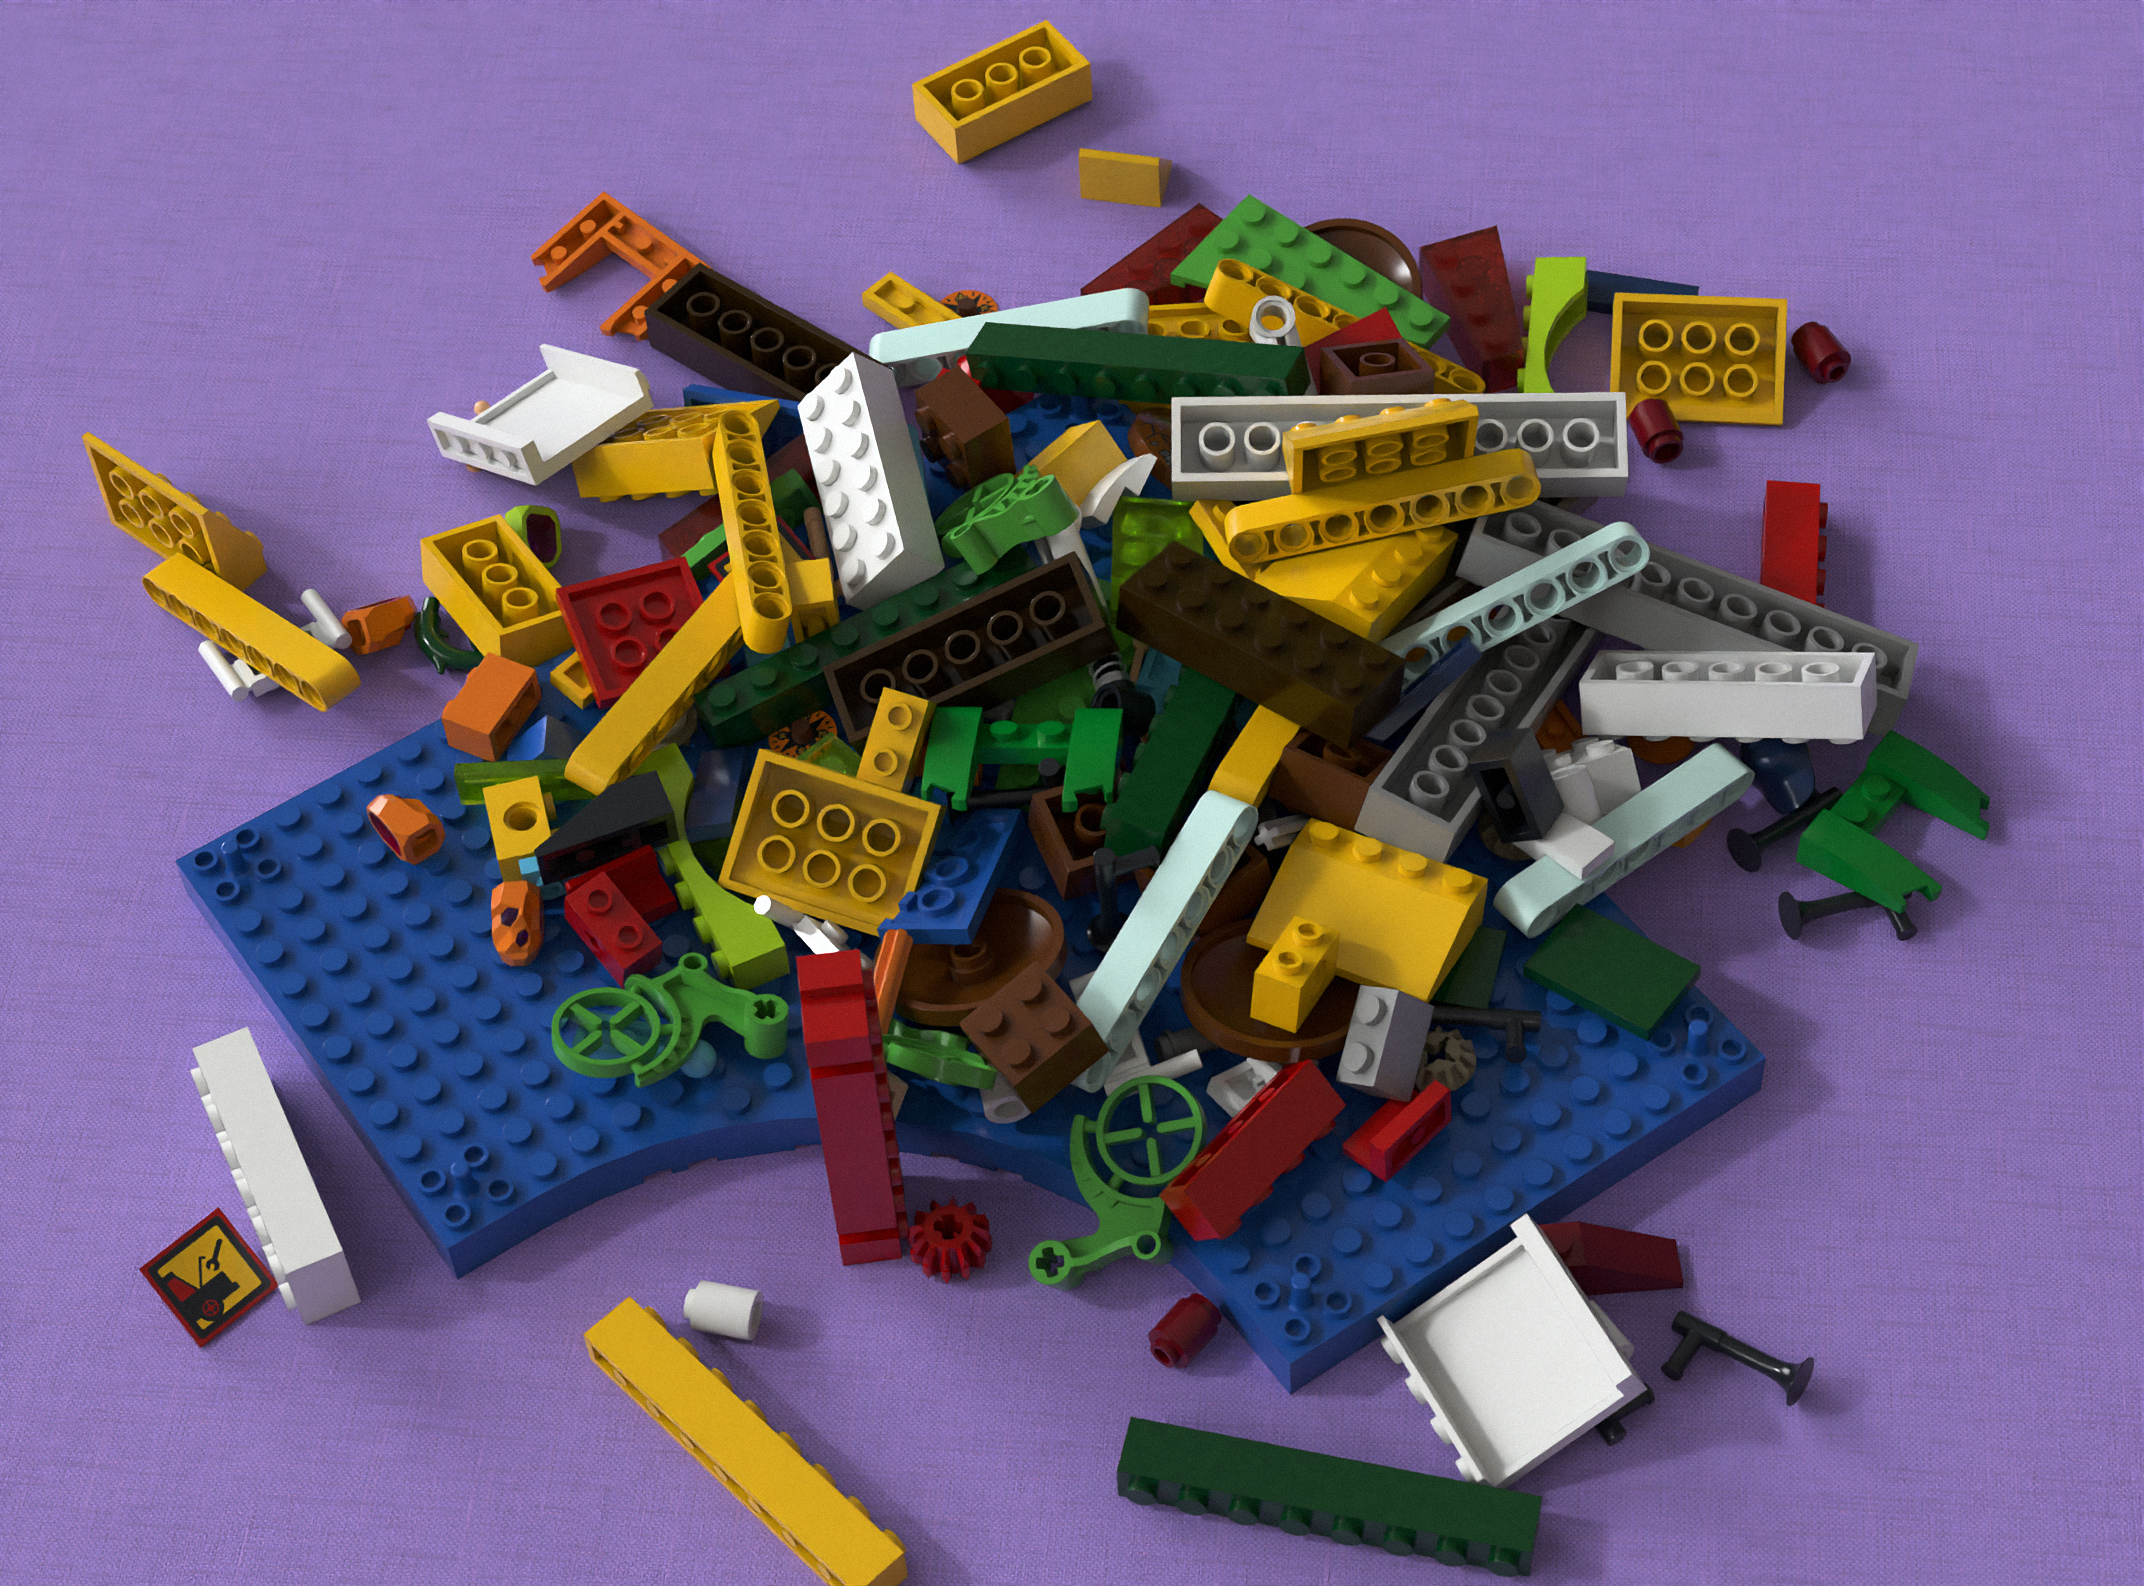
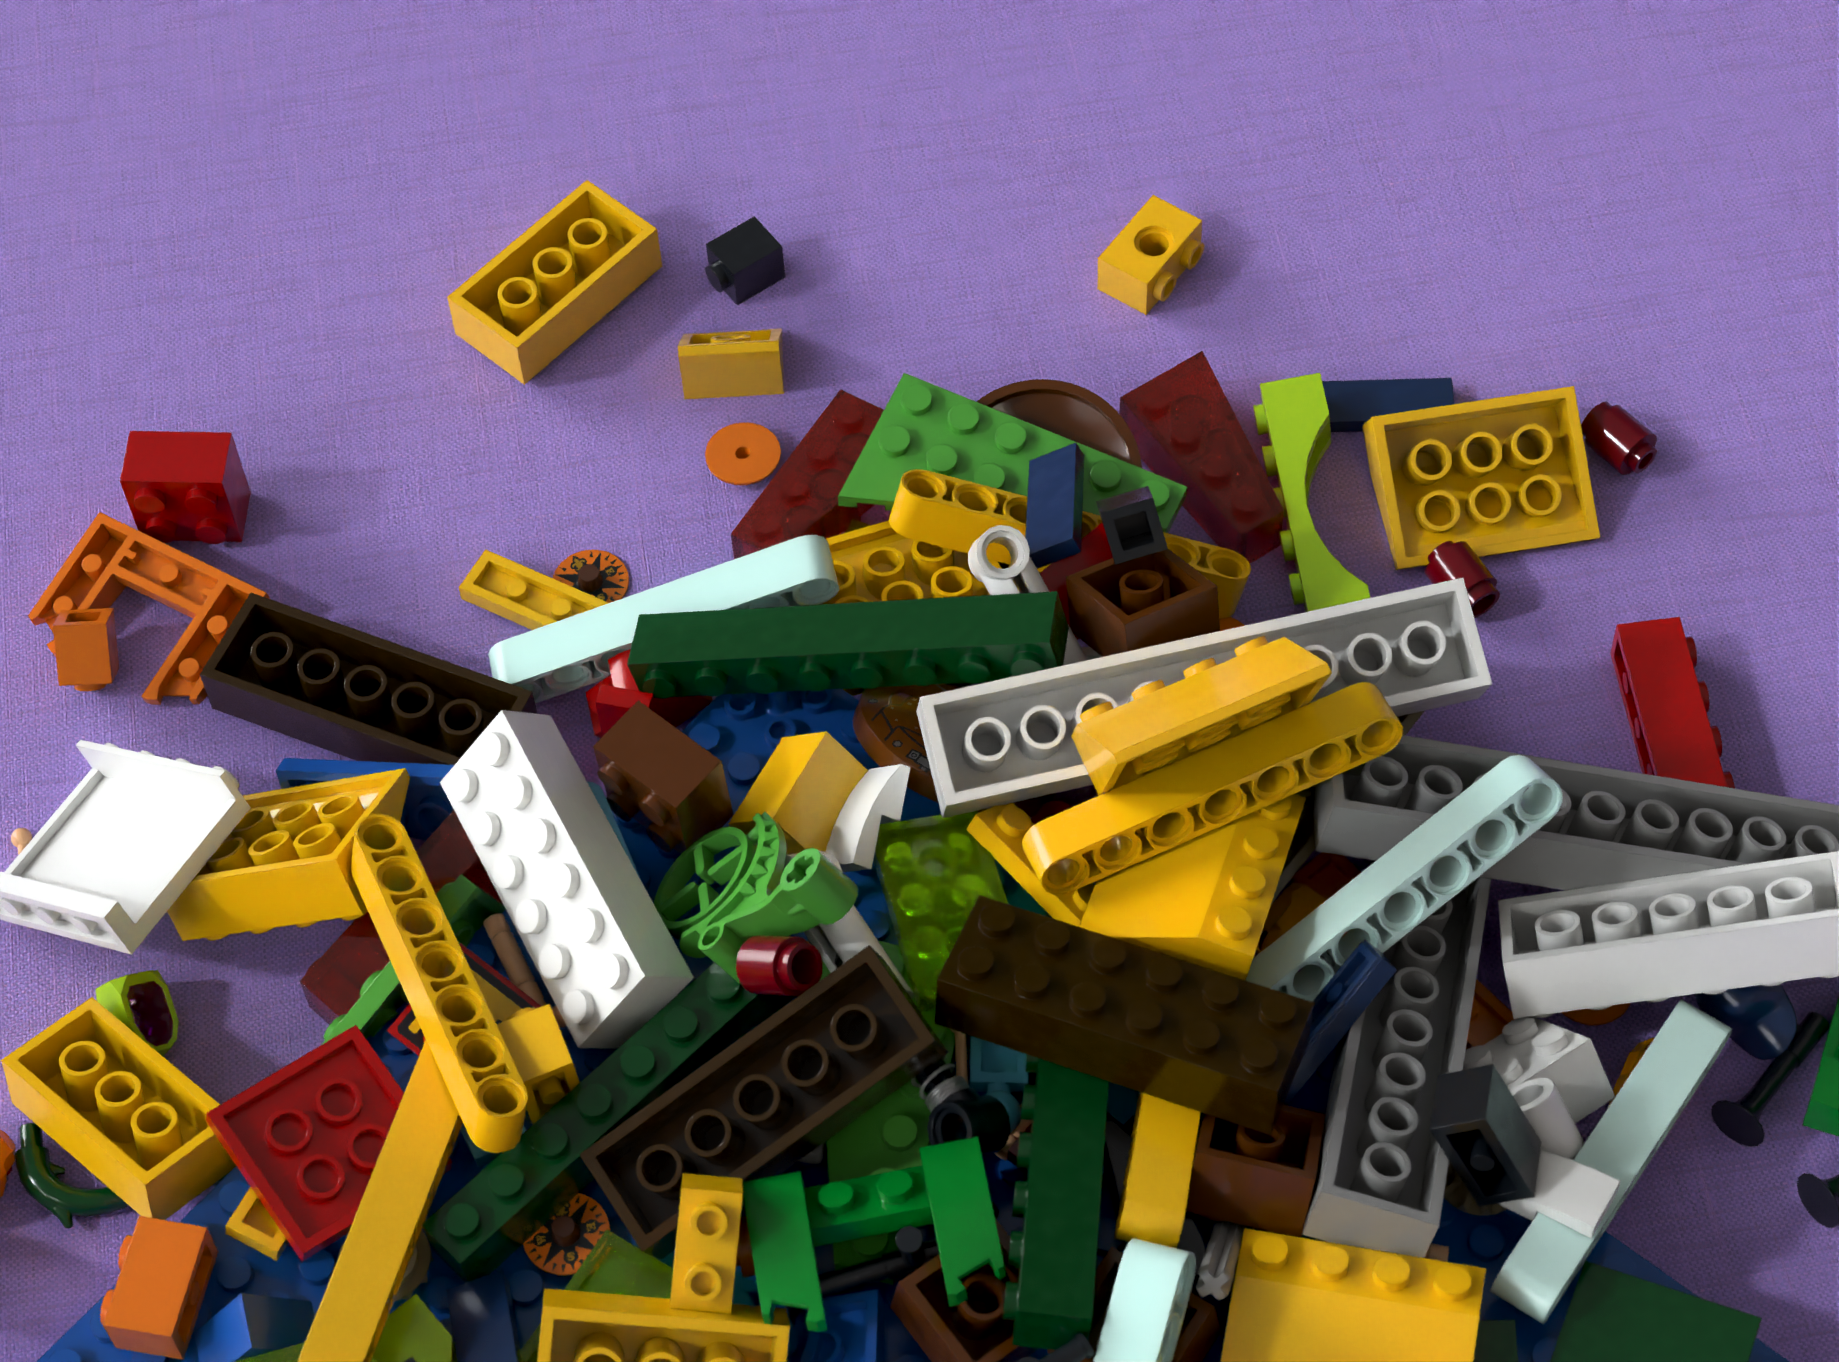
camera: 15 degrees left, 5 degrees up
(566, 283) = (86, 648): none -> orange brick
(674, 183) = (186, 486): none -> red brick
(1004, 557) = (778, 965): none -> dark red brick
(1111, 240) = (743, 453): none -> orange piece
(1156, 104) = (744, 261): none -> black brick
(1333, 303) = (1055, 505): none -> dark blue tile
(1382, 317) = (1132, 525): none -> black brick
(1482, 155) = (1150, 255): none -> yellow brick

